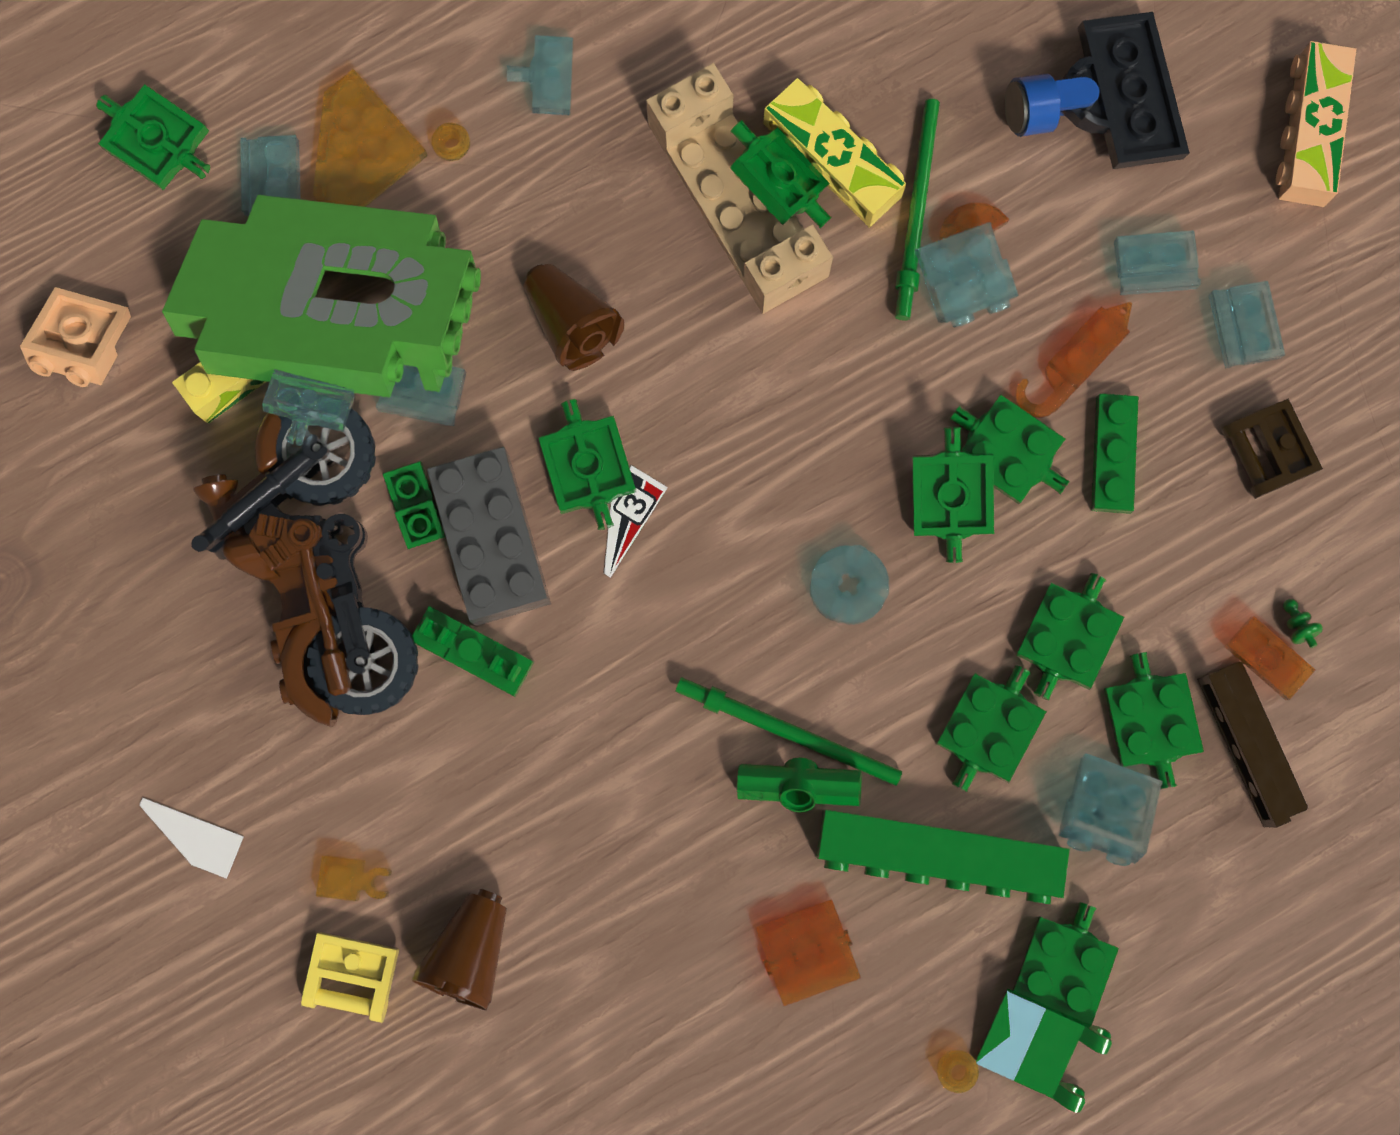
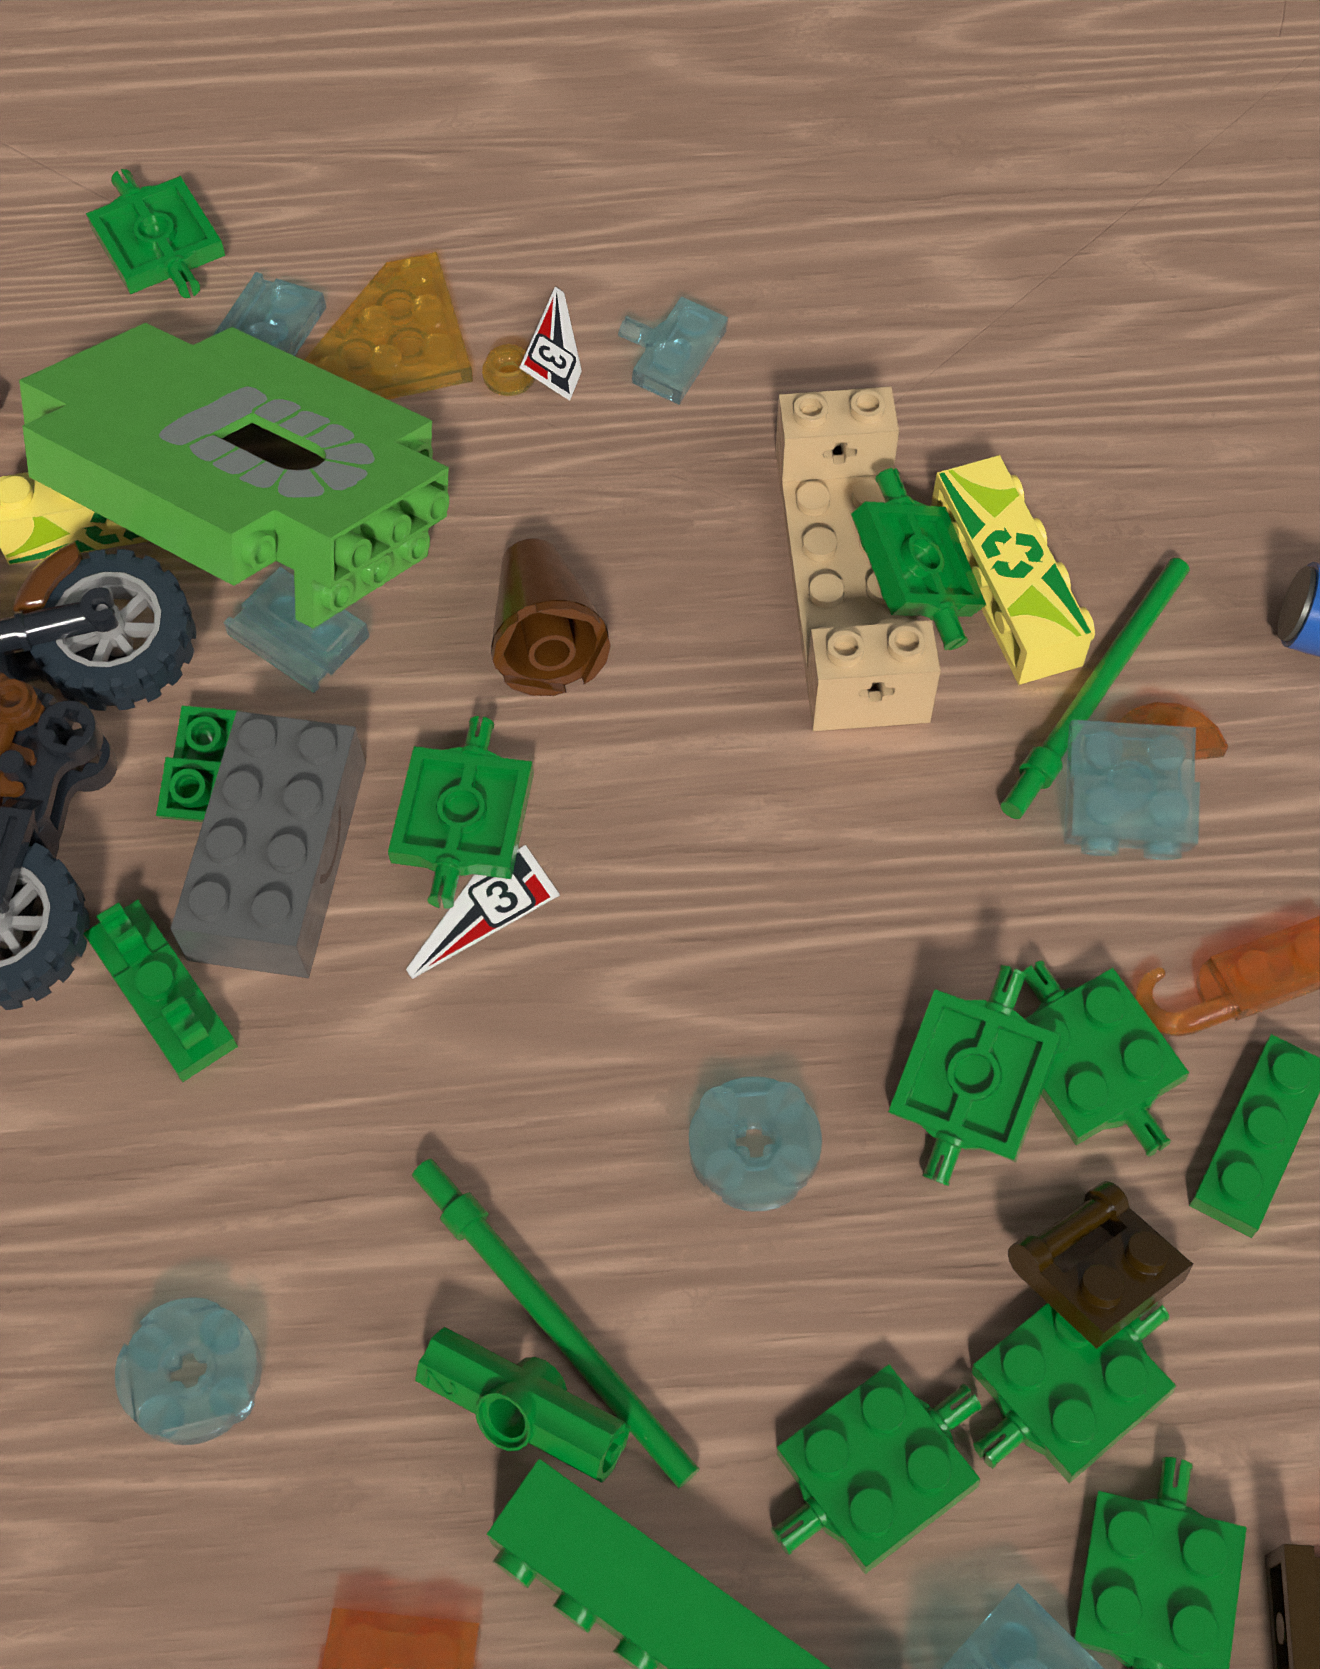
camera: 25 degrees right, 20 degrees down
(307, 403) = (122, 545): clear light blue plate -> none
(473, 117) = (553, 350): none -> sticker
(592, 846) = (223, 1393): none -> clear light blue plate
(1073, 575) = (1112, 1282): none -> dark brown plate

